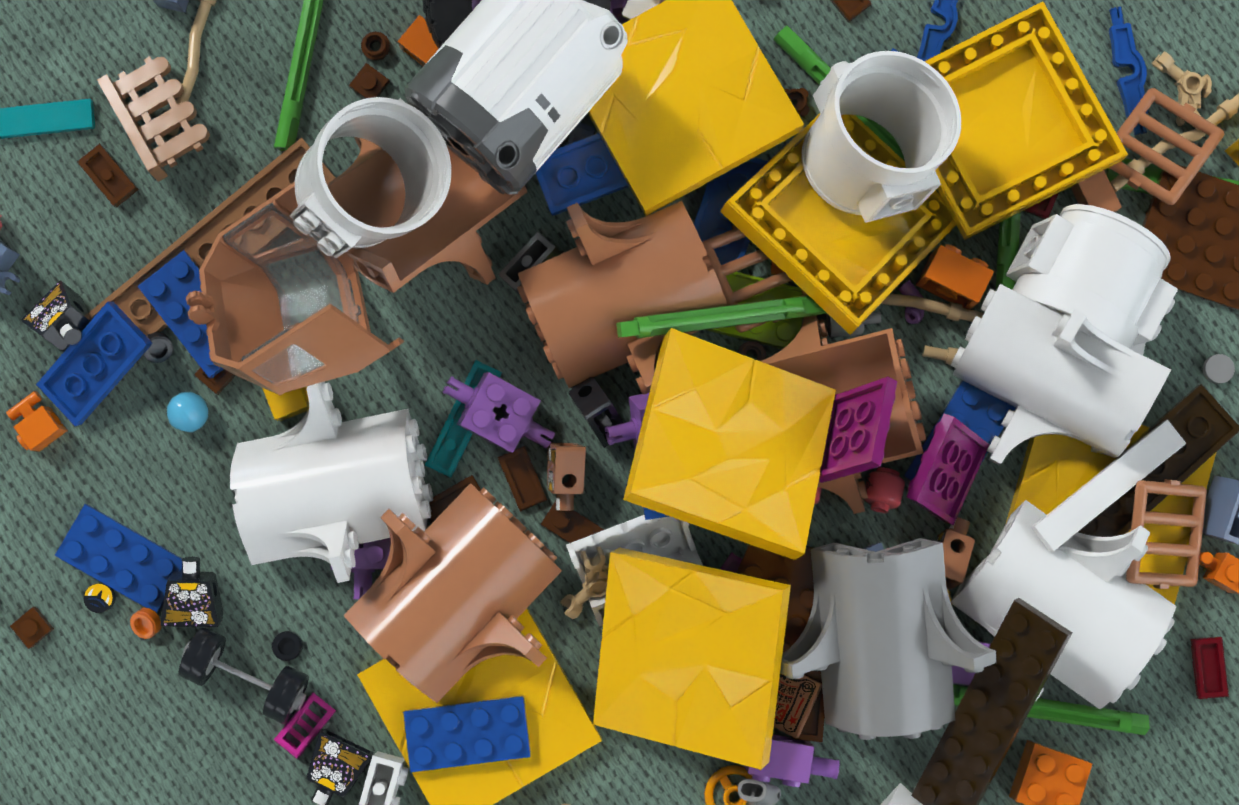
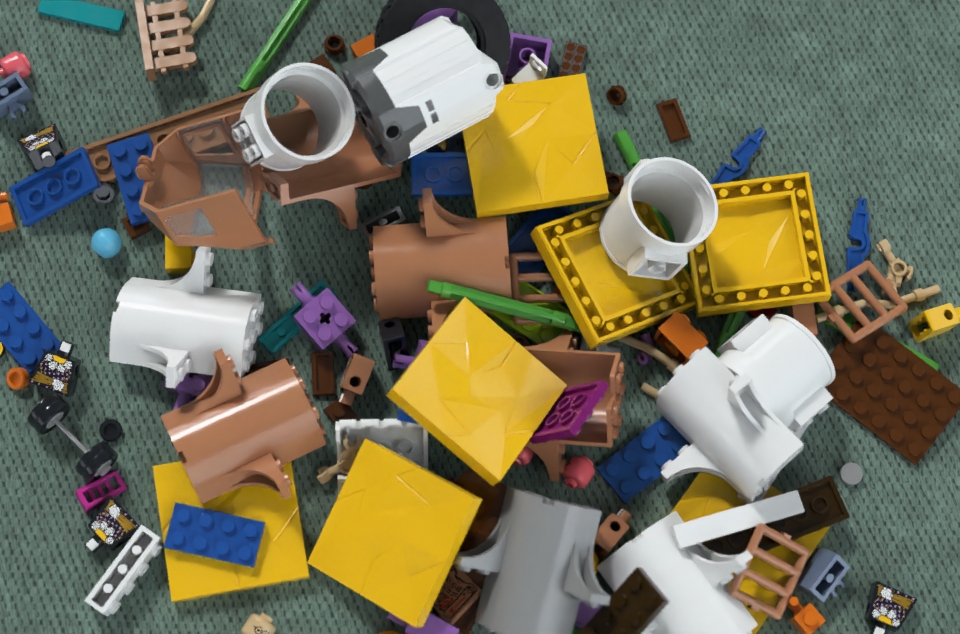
camera: 10 degrees right, 10 degrees down
(107, 175) = (115, 66): reddish brown plate -> none
(947, 469) = (626, 468): magenta plate -> none

